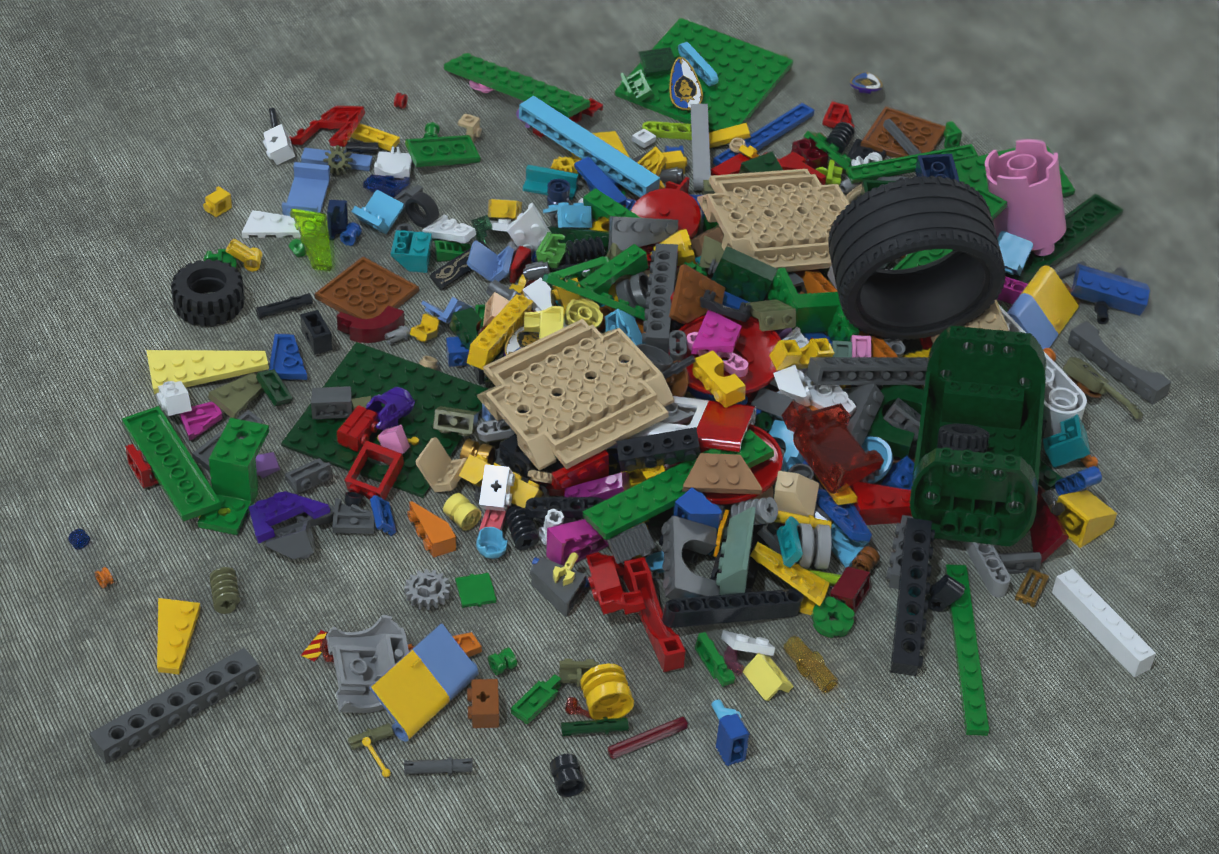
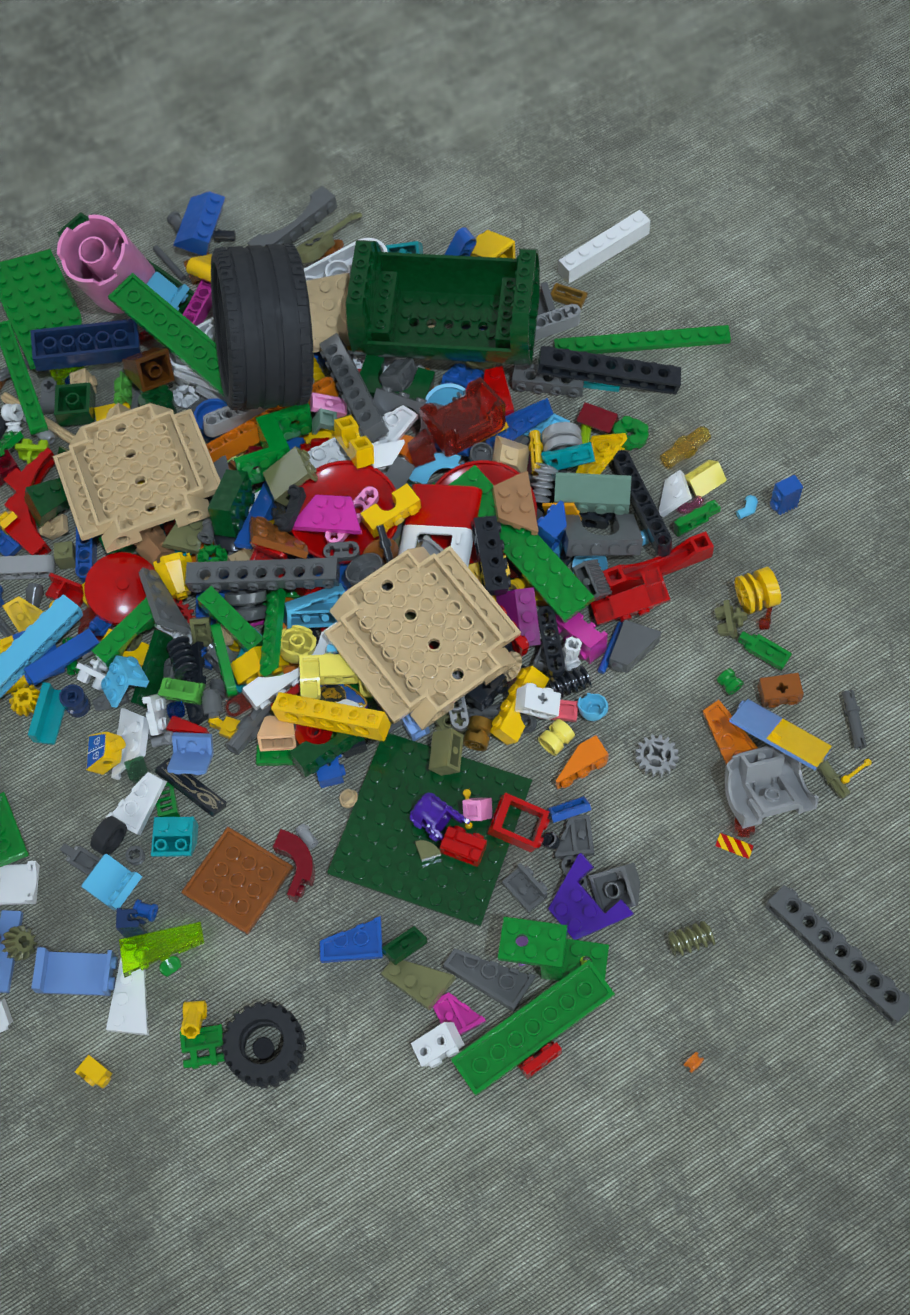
camera: 85 degrees left, 20 degrees up
(78, 538) = (646, 1101): clear blue bush -> none
(175, 632) = (740, 979): yellow wing -> none
(202, 366) = (379, 1045): light yellow wing -> none
(292, 303) = (259, 941): black pin -> none
(316, 332) = (317, 915): black brick -> none
(331, 402) = (427, 878): dark grey bracket -> none
(385, 184) = (55, 886): clear blue wing -> none
(427, 329) = (298, 807): yellow bracket -> none
(438, 467) = (504, 759): tan bracket -> none
(446, 316) = (281, 787): medium blue bracket -> none
(475, 590) = (643, 718): green piece -> none
(567, 775) = (848, 614): black wheel -> none
(570, 576) = (625, 634): light yellow bar -> none
(594, 726) = (785, 605): dark green pin -> none
(647, 737) = (786, 563): dark red axle -> none
(675, 159) = (12, 590): yellow brick -> none
(866, 559) = (562, 409): dark orange wheel -> none
(944, 593) = (593, 348): black piece -> none
(963, 437) = (441, 323): black tyre -> none

